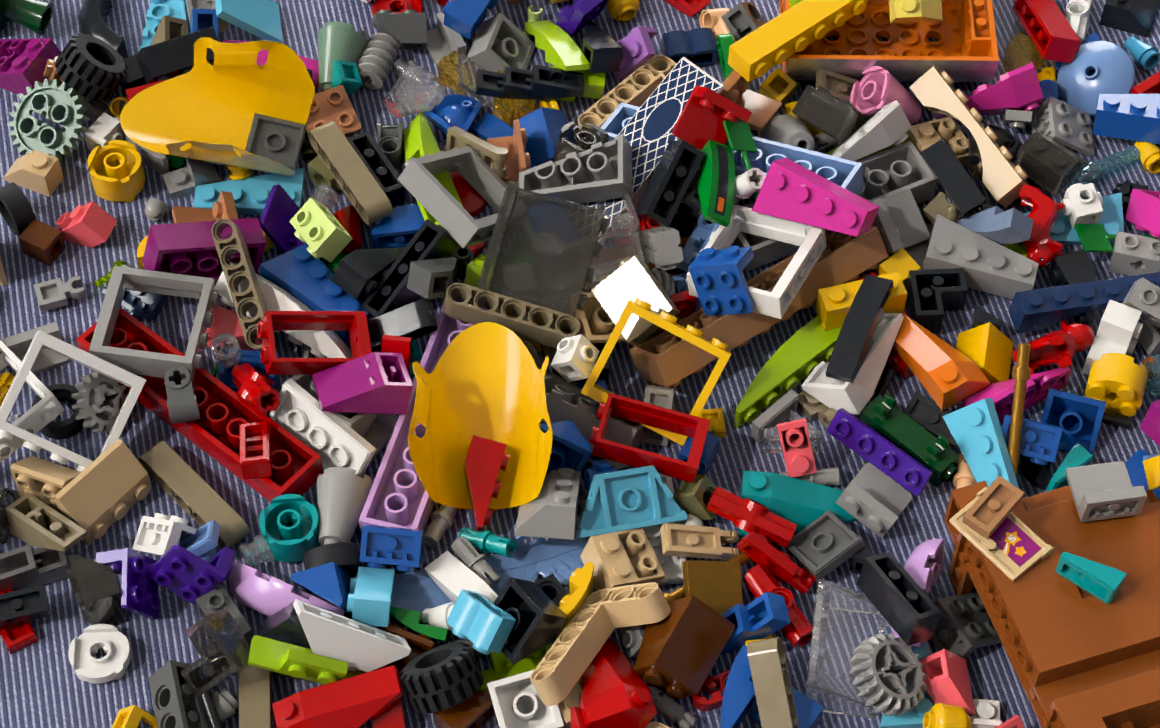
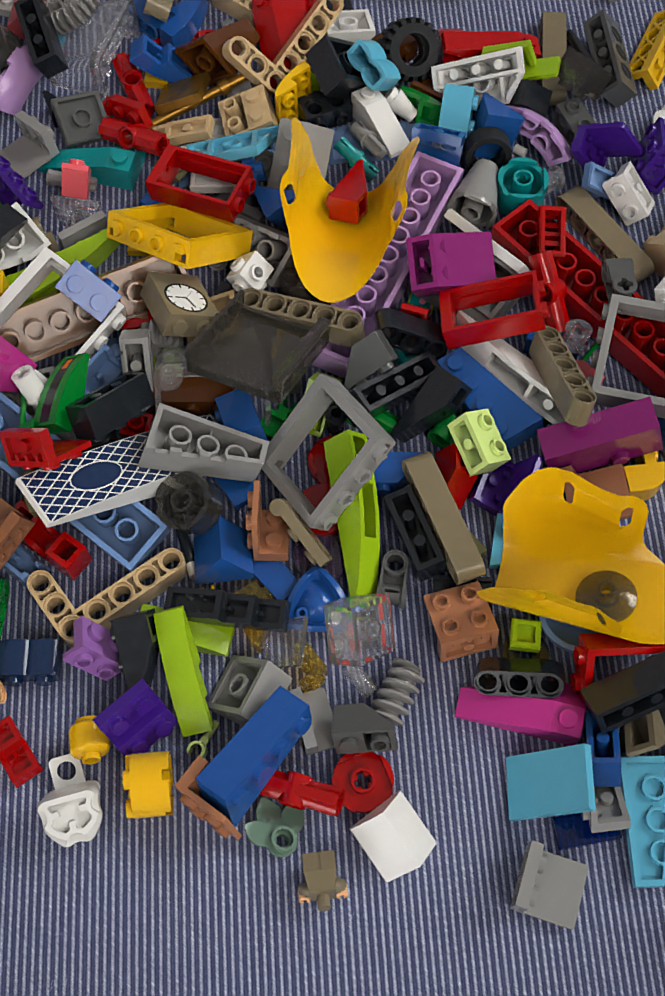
camera: 170 degrees left, 10 degrees up
(155, 209) = (652, 536): light grey hinge -> none
(188, 129) = (616, 604): none -> clear smoke dish
(276, 139) = (523, 570): dark grey tile -> none
(325, 196) = (474, 515): clear wheel -> none
(337, 42) = (441, 705): sand green cone -> none
(346, 74) = (435, 660): teal slope -> none

